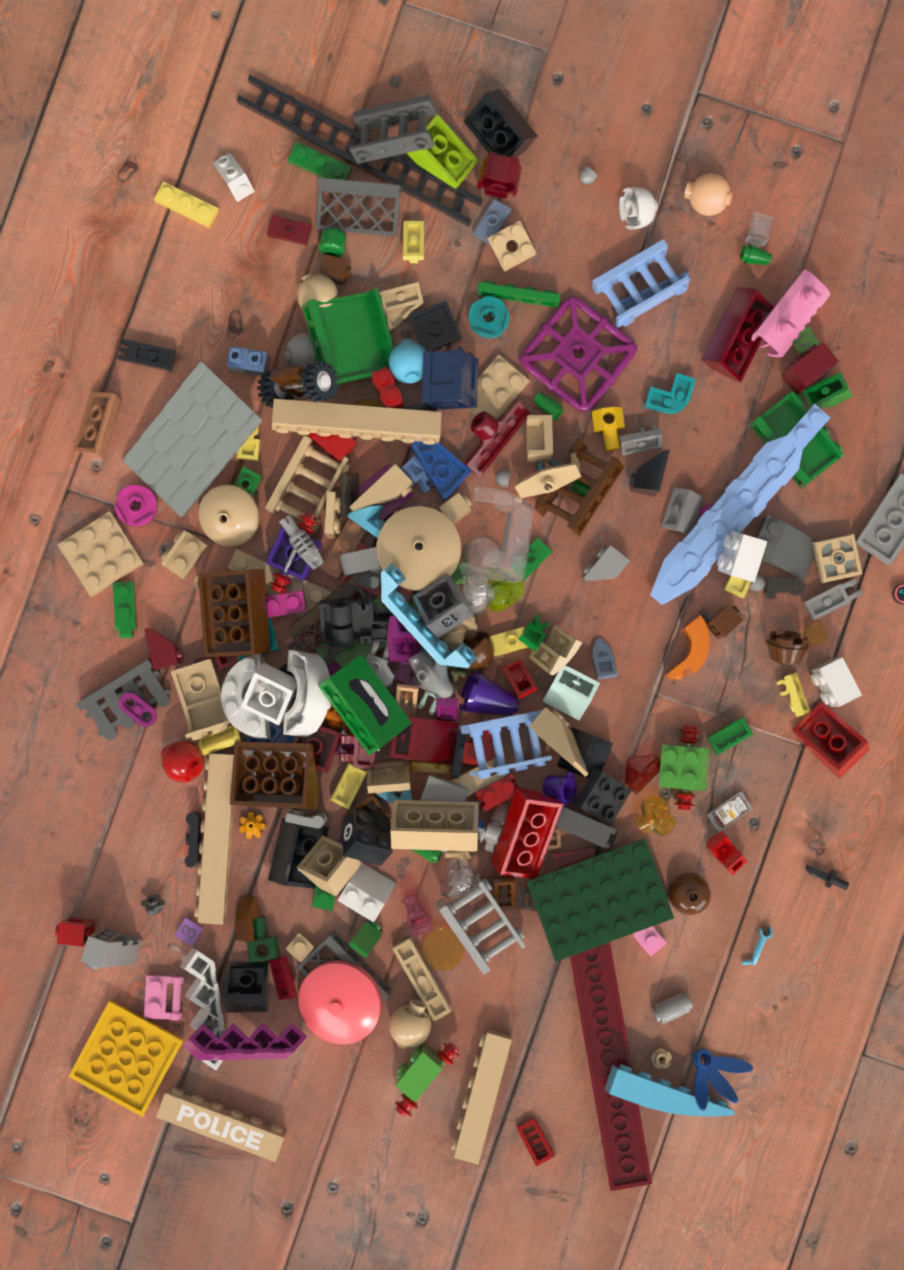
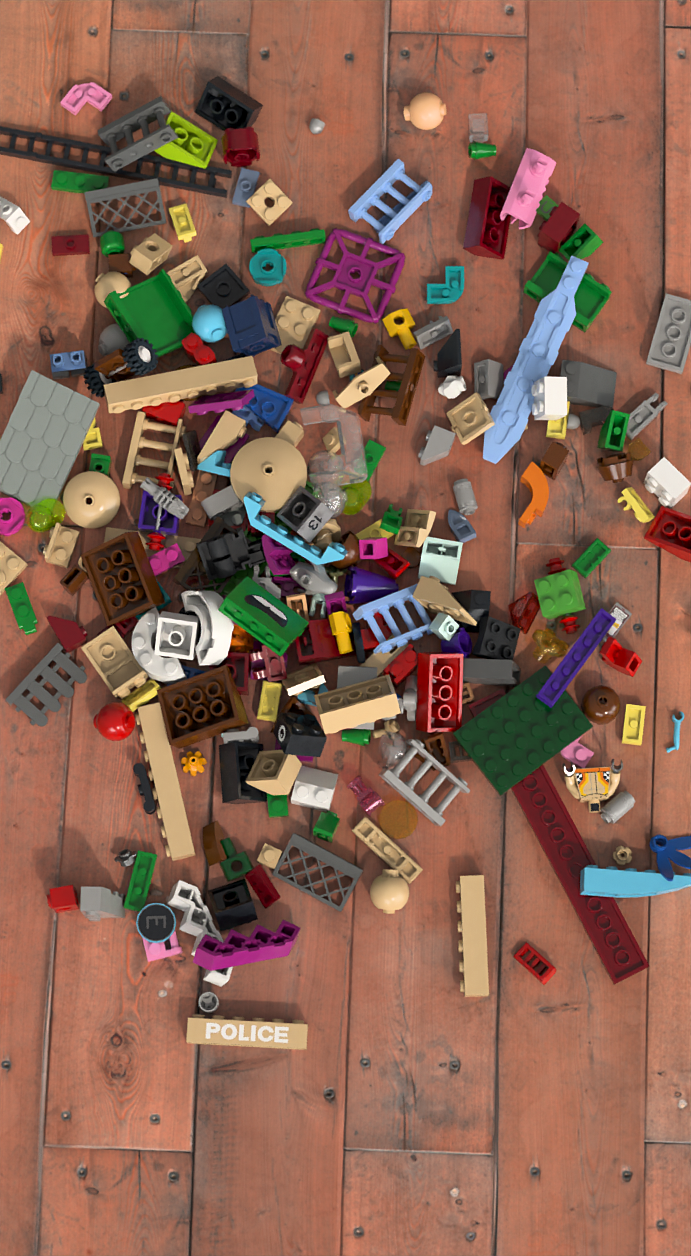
camera: 20 degrees left, 10 degrees down
(126, 1058) = (142, 1001): yellow plate -> none
(136, 711) = (61, 689): magenta plate -> none
(160, 933) = (140, 881): none -> green plate
(162, 984) = (156, 922): none -> black tile
(176, 517) = (45, 515): none -> clear neon green cap
(185, 596) = (74, 580): none -> reddish brown piece
(189, 931) = (165, 872): medium lavender tile -> none
(189, 1083) = (208, 999): none -> light grey wheel
(340, 1002) = (320, 890): coral dish -> none
(353, 65) = (85, 93): none -> bright pink plate
(368, 266) = (150, 253): none -> tan brick
(394, 453) = (221, 402): none -> magenta plate
(420, 1072) = (410, 929): bright green brick -> none
(430, 767) = (333, 660): clear yellow tile -> none
(444, 734) = (341, 628): none -> yellow piece
(497, 527) = (331, 440): none -> tan plate
(505, 659) = (373, 548): none -> dark pink brick
(552, 766) = (443, 626): none -> light aqua plate
(618, 630) = (465, 496): none -> light grey head
(637, 207) = (367, 139): white cylinder -> none
(642, 507) = (452, 386): none -> white rock
(650, 548) = (470, 418): none -> tan plate
(655, 977) = (592, 784): none -> torso
(679, 842) = (576, 658): none -> dark purple plate
(716, 926) = (633, 724): none -> light yellow plate
(797, 610) = (614, 431): none -> green slope
(837, 558) = (635, 380): tan piece -> none

